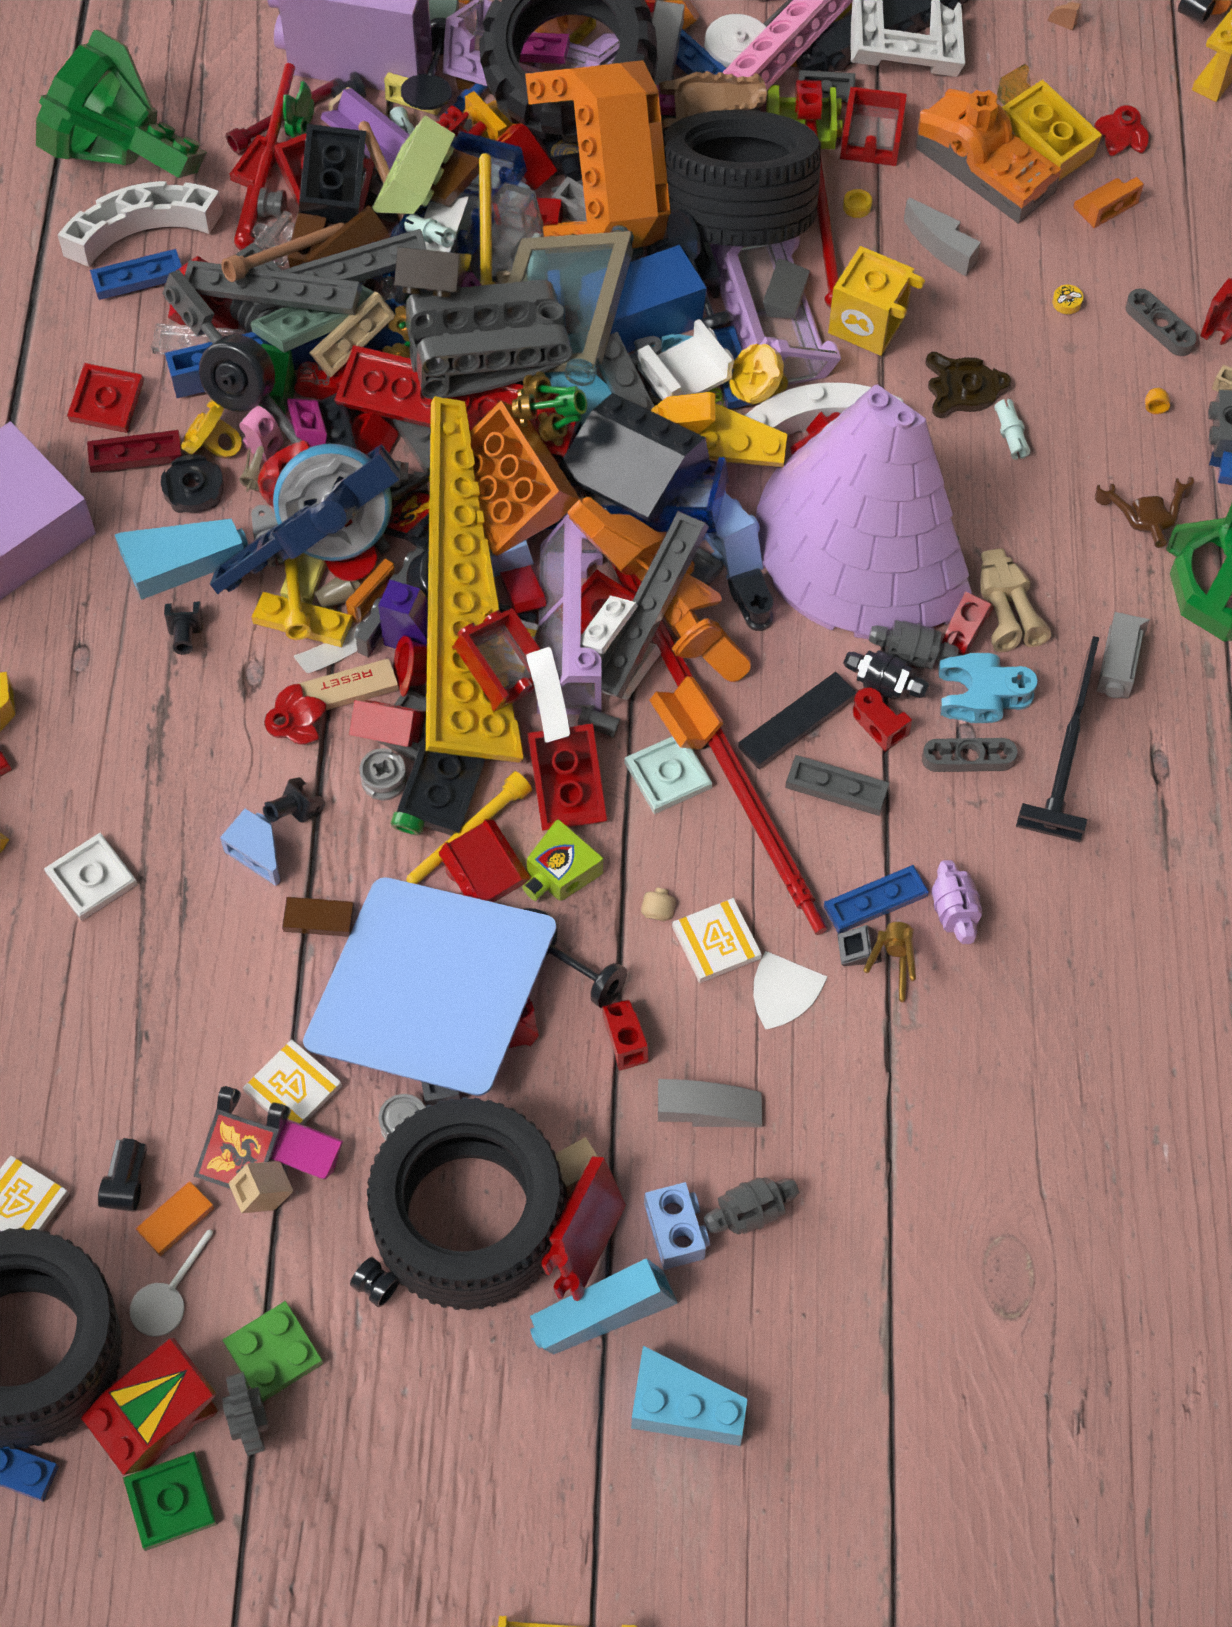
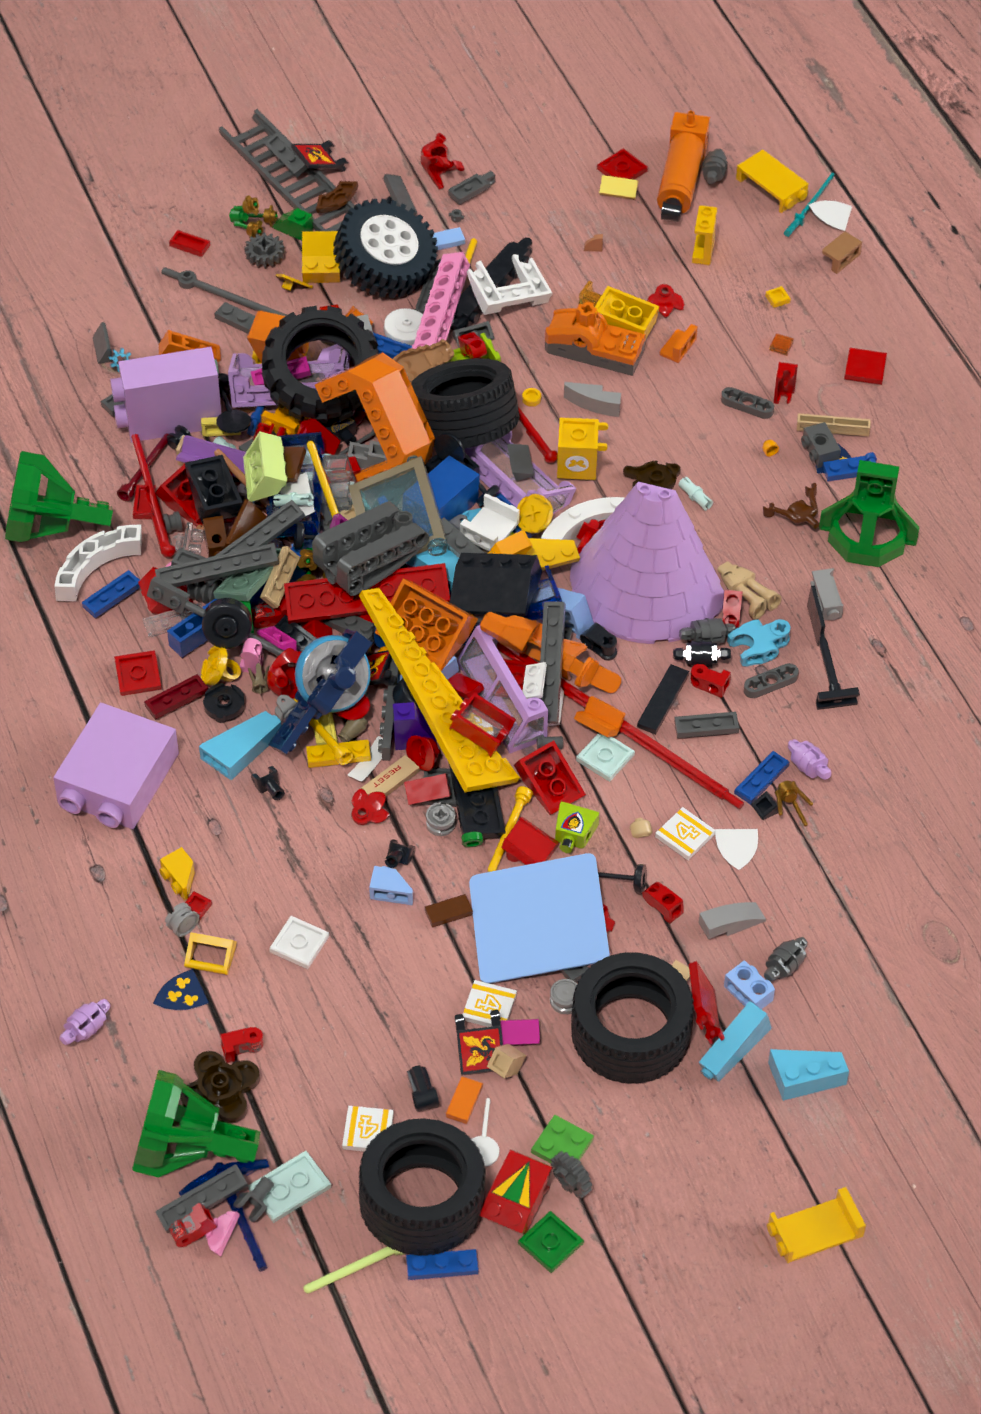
camera: 25 degrees left, 10 degrees down
(237, 266) = (192, 561): nougat piece -> none
(298, 111) = (157, 467): green plate -> none
(372, 588) = (372, 720): orange tile -> none
(374, 1282) = (600, 1083): black wheel -> none
(430, 270) = (320, 518): dark brown slope -> none
(548, 694) = (520, 733): white sticker -> none
(569, 403) = (446, 564): plant -> none
(873, 126) = (517, 347): window -> none
(1067, 299) = (686, 409): yellow tile -> none

